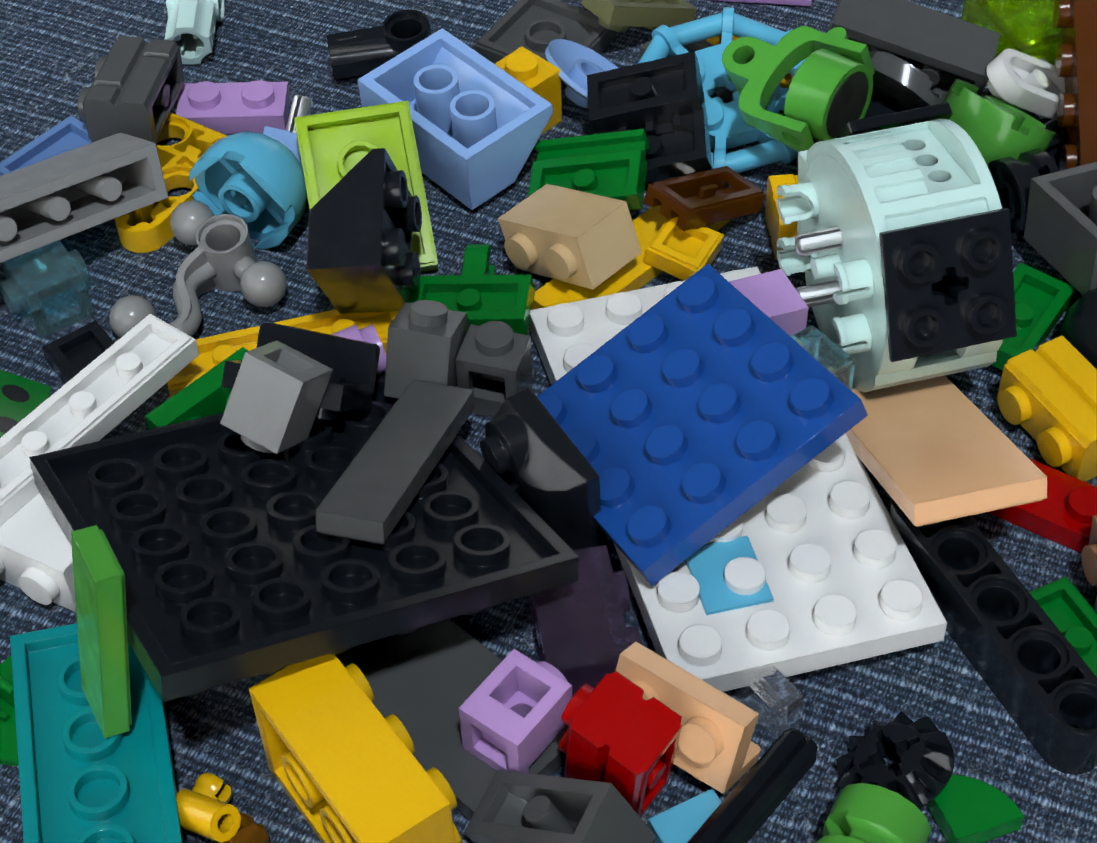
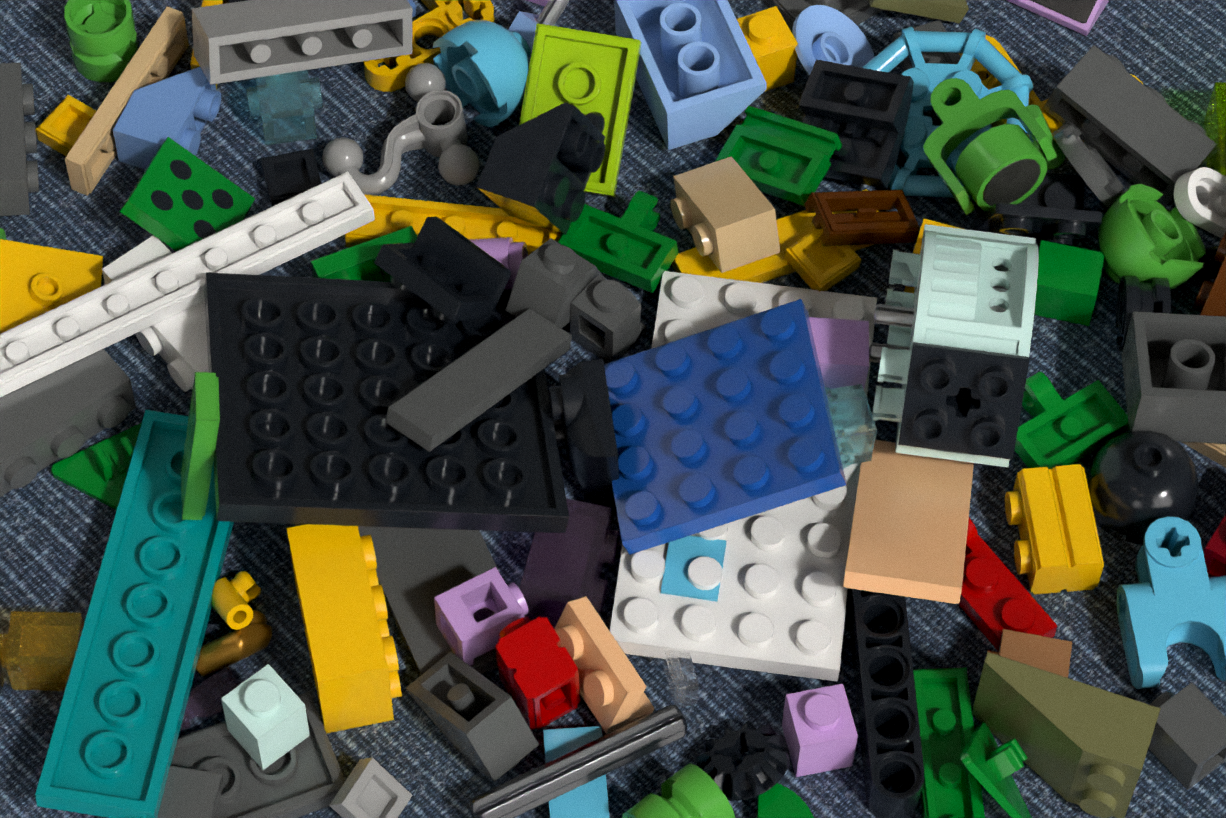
camera: 20 degrees right, 10 degrees up
(275, 397) = (405, 294): light grey brick -> none
(962, 693) = (819, 730): none -> lavender brick

